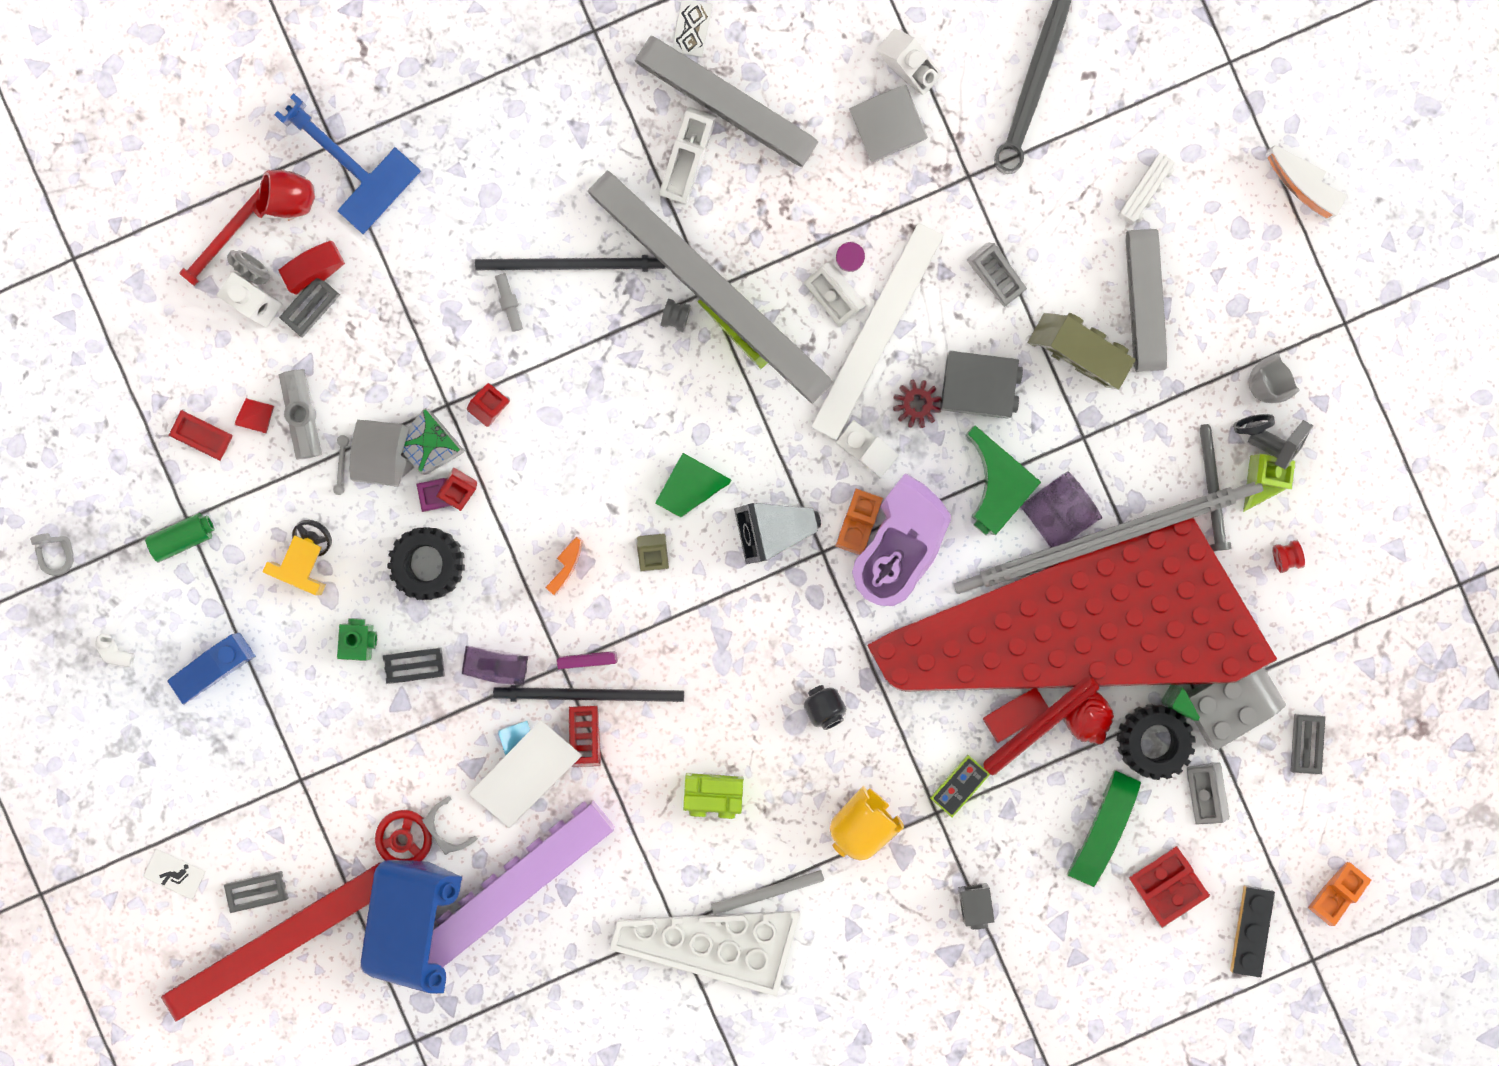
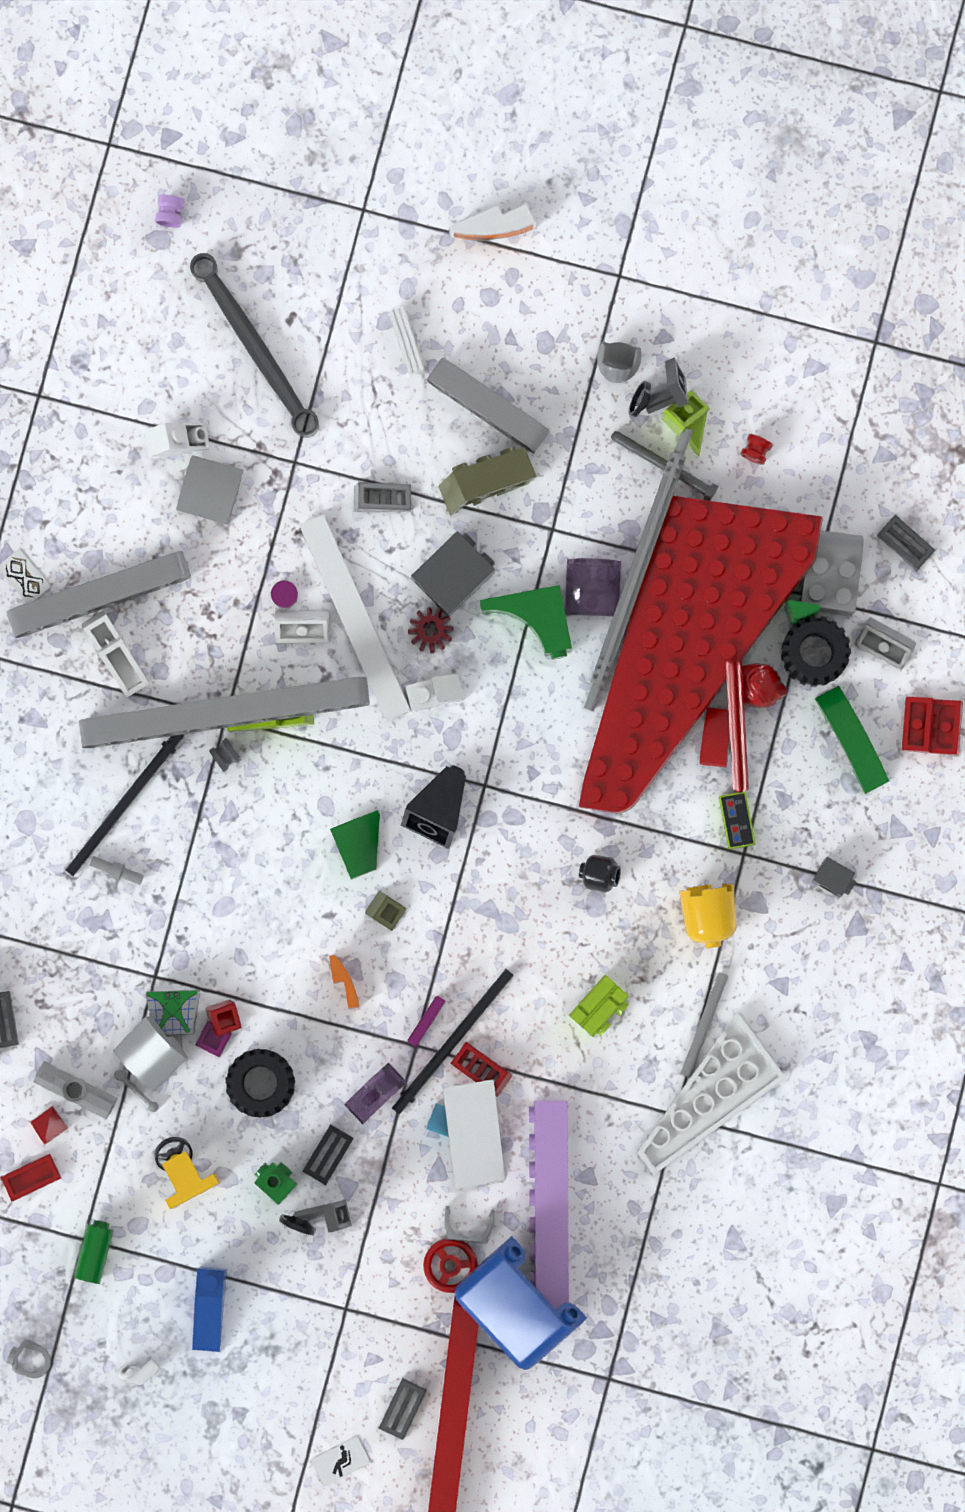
camera: 50 degrees left, 5 degrees down
(367, 710) = (335, 1215): none -> dark grey piece
(487, 404) = (179, 946): red slope -> none
(858, 521) = (483, 741): orange slope -> none
(903, 543) = (525, 721): lavender piece -> none

